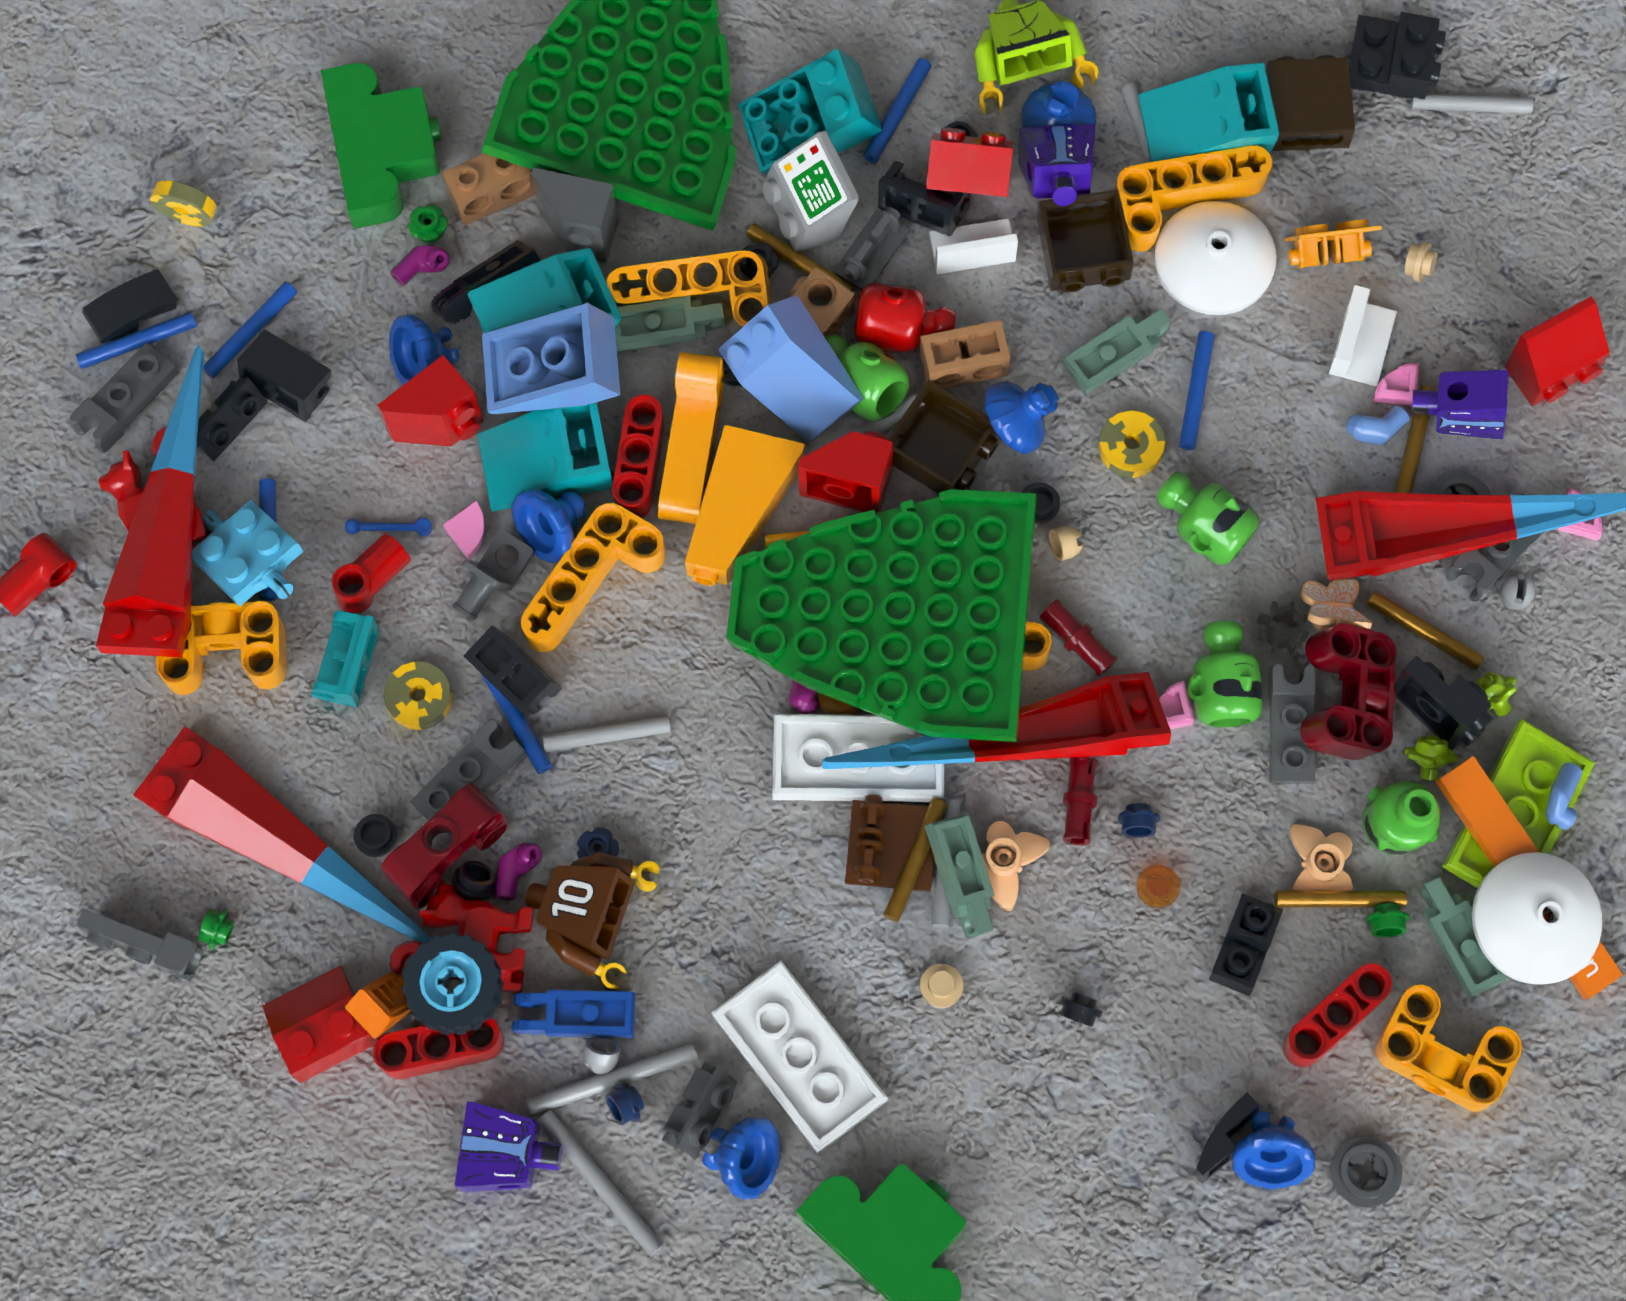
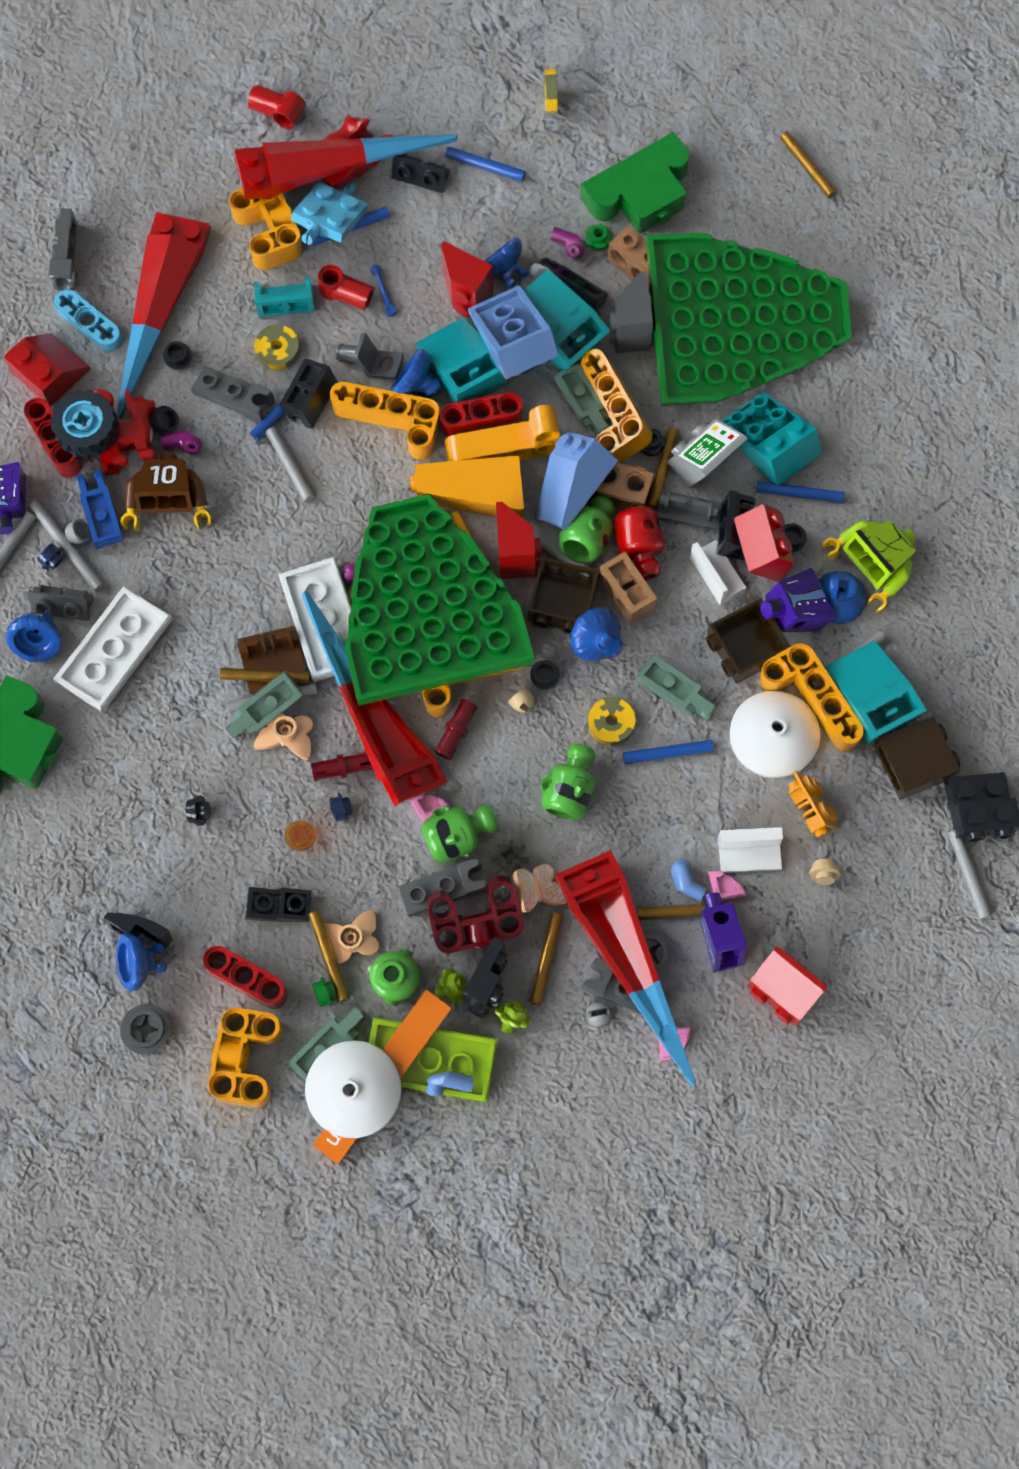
camera: 70 degrees right, 0 degrees up
(124, 397) = (411, 110): dark grey plate -> none
(128, 304) = (474, 90): black slope -> none
(136, 340) = (453, 104): blue piece -> none
(216, 928) = (89, 288): green plate -> none
(240, 970) = (92, 331): none -> medium azure beam
(285, 374) = (460, 192): black hinge -> none
(380, 1004) = (52, 380): orange slope -> none
(417, 867) = (194, 394): dark red beam -> none
(467, 529) = (397, 335): bright pink tile -> none
(599, 836) = (218, 487): dark blue plate -> none
(941, 985) = (187, 720): tan plate -> none

